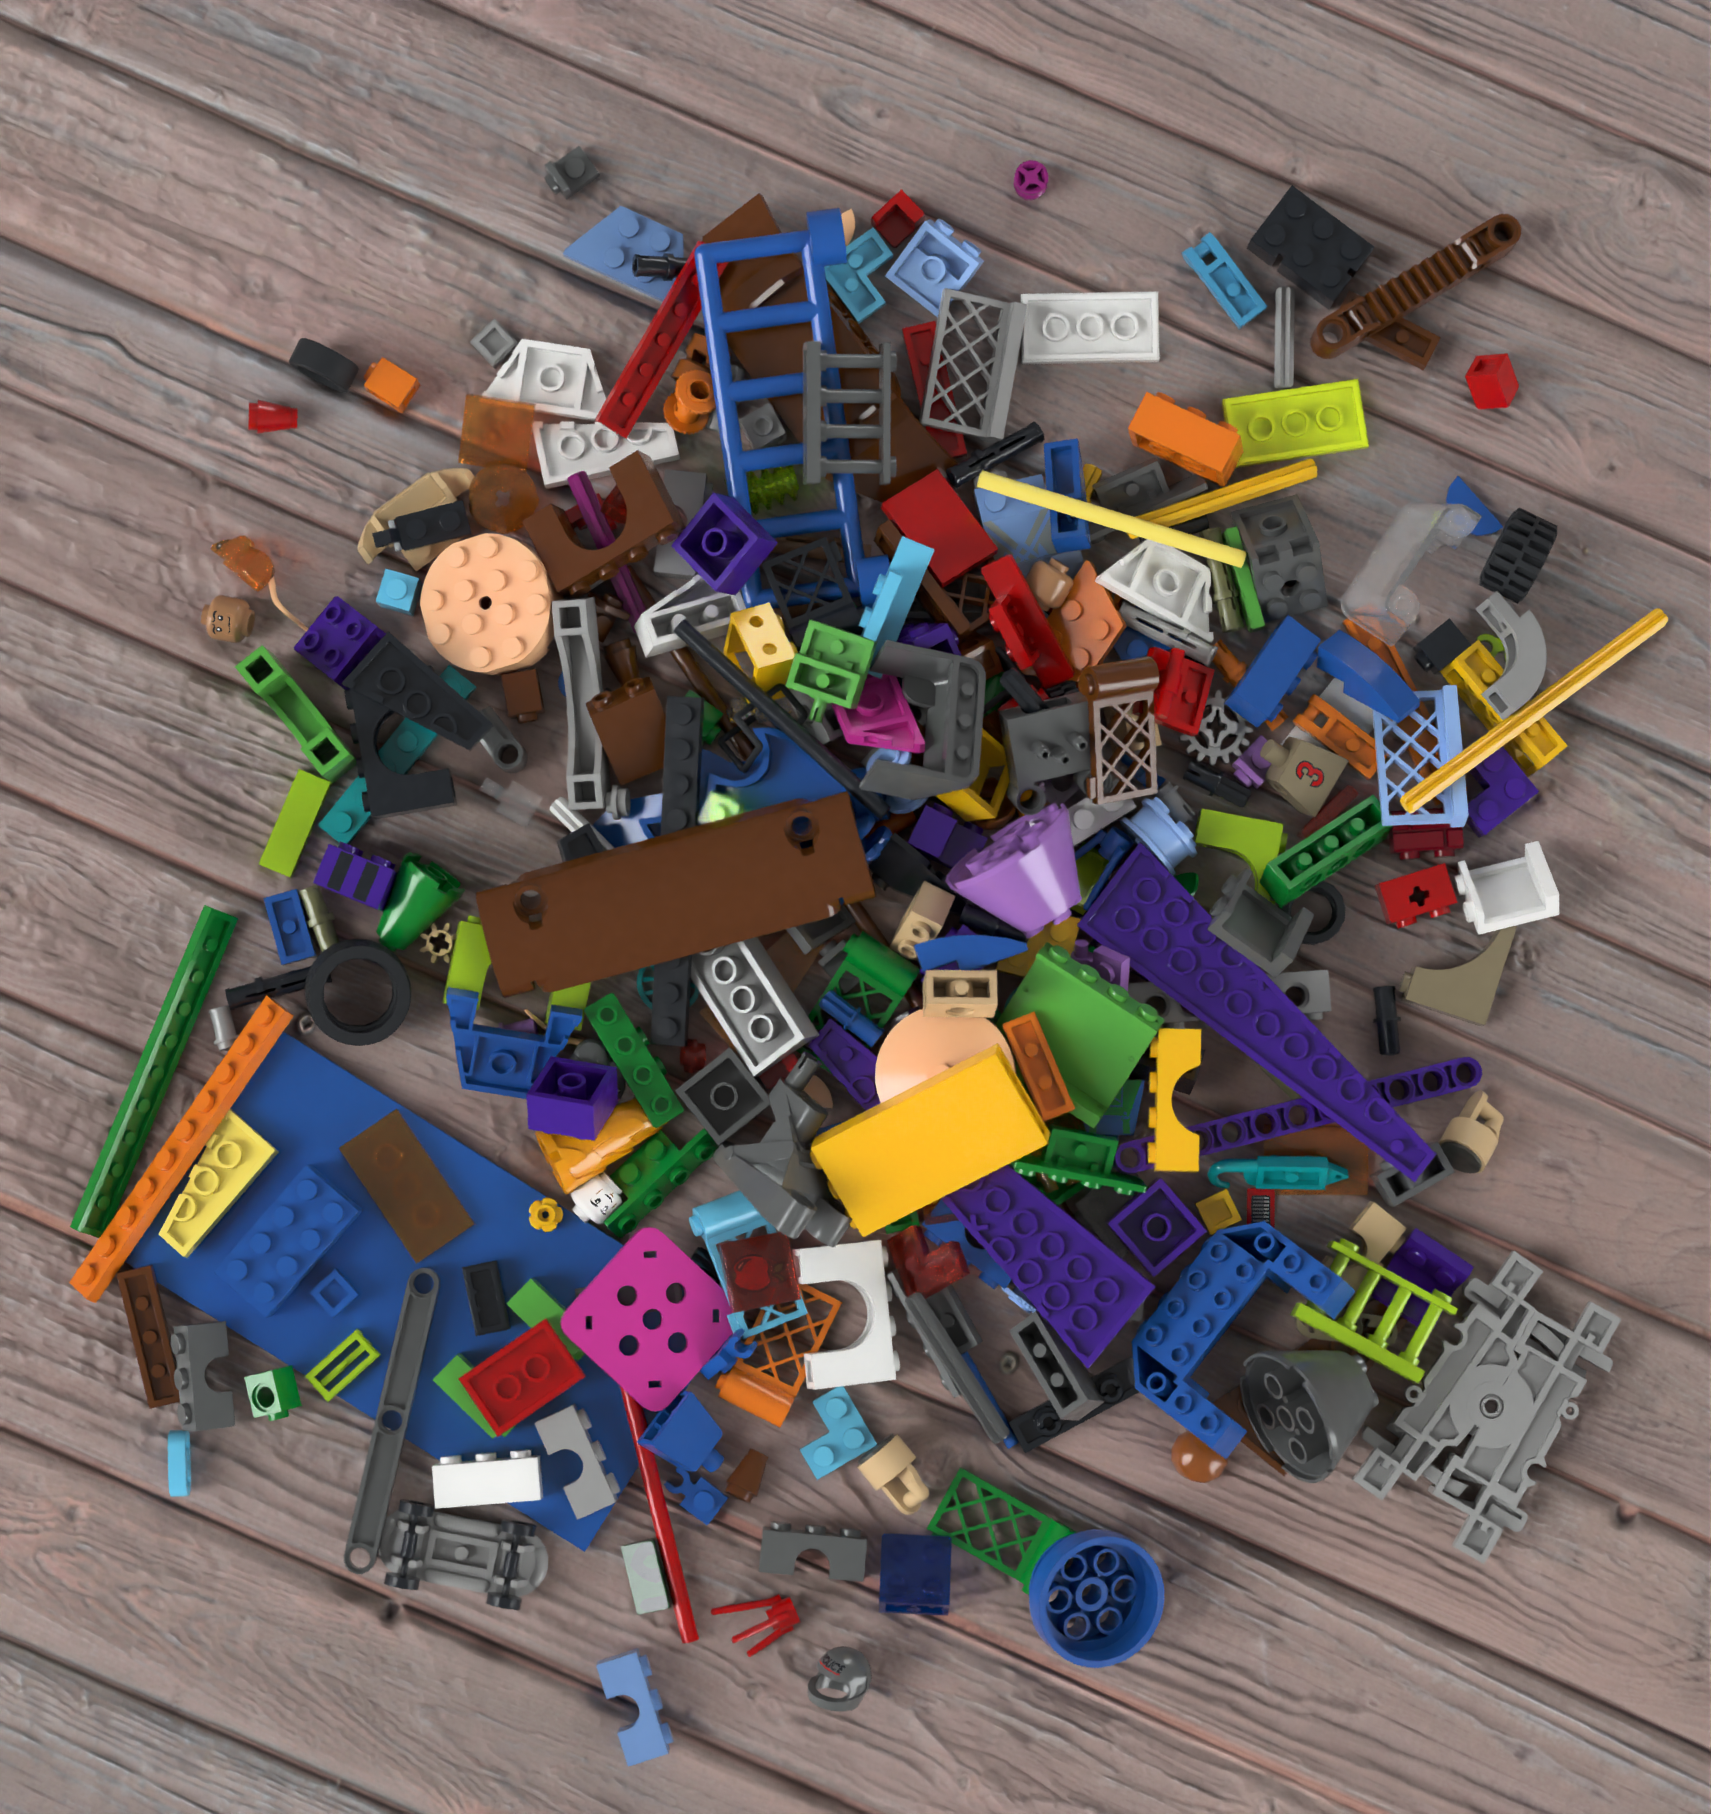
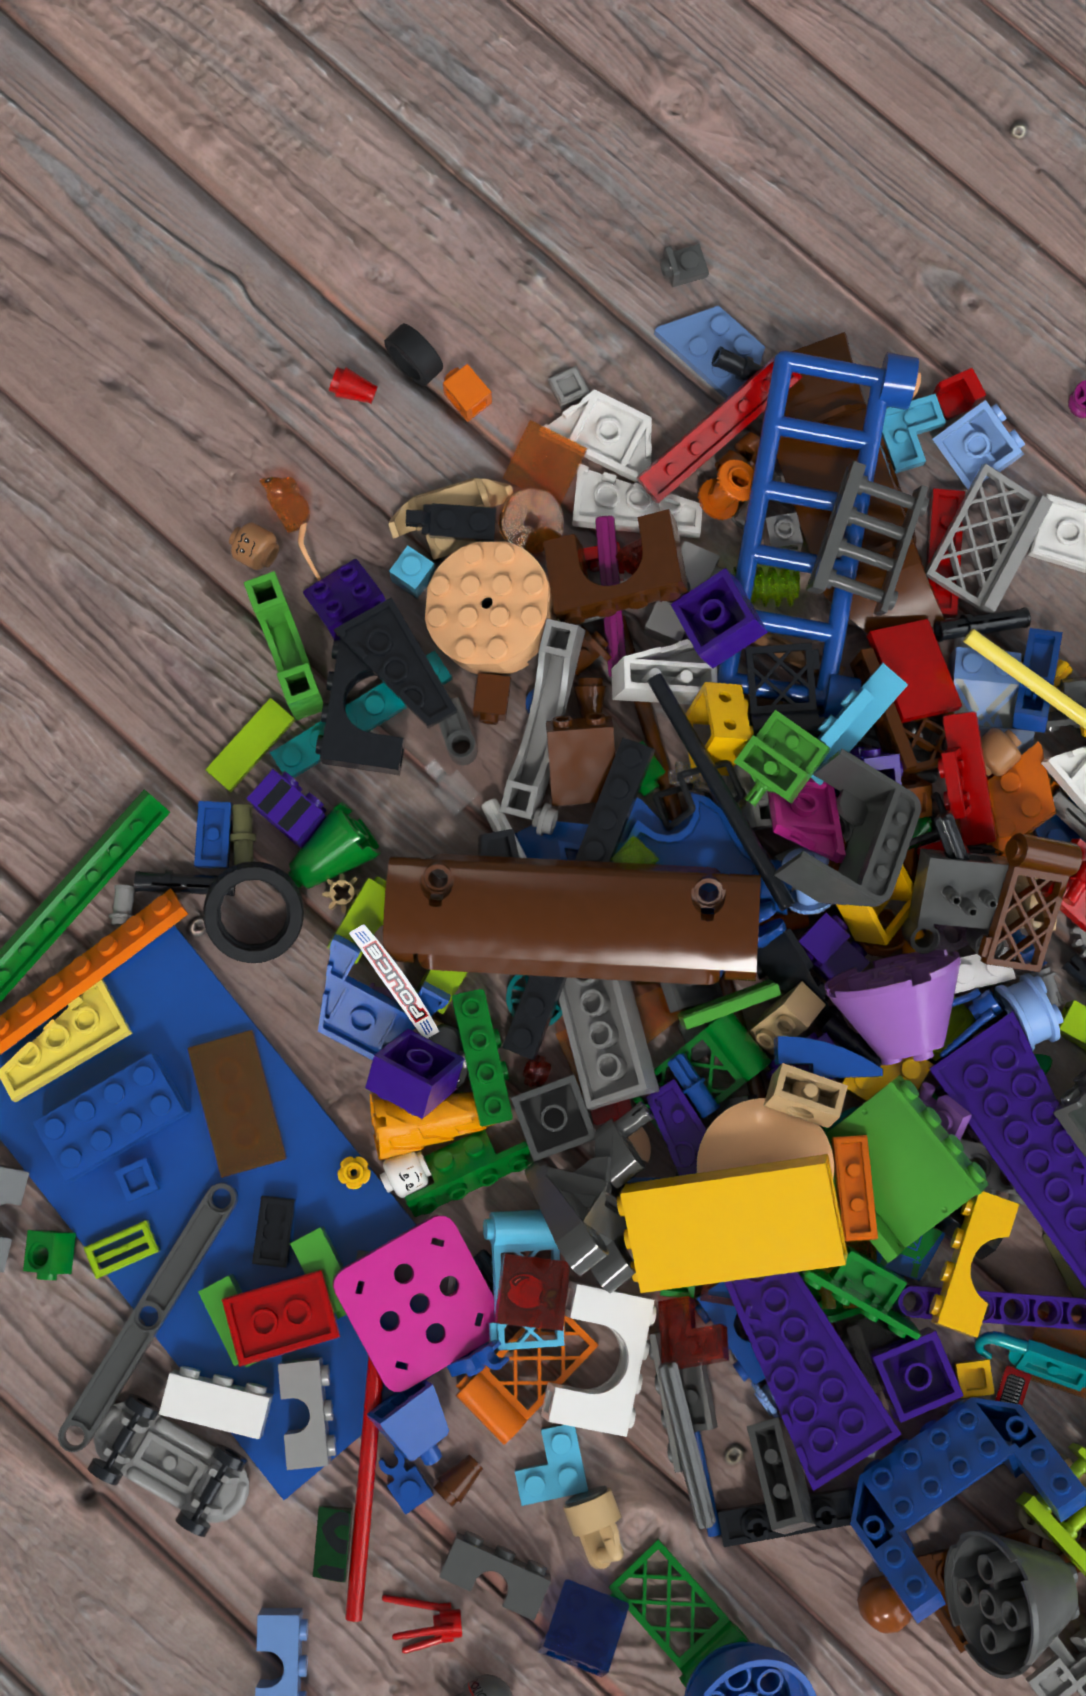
camera: 15 degrees right, 5 degrees down
(522, 1014) = (395, 981): none -> sticker
(859, 926) = (729, 1004): none -> bright green tile

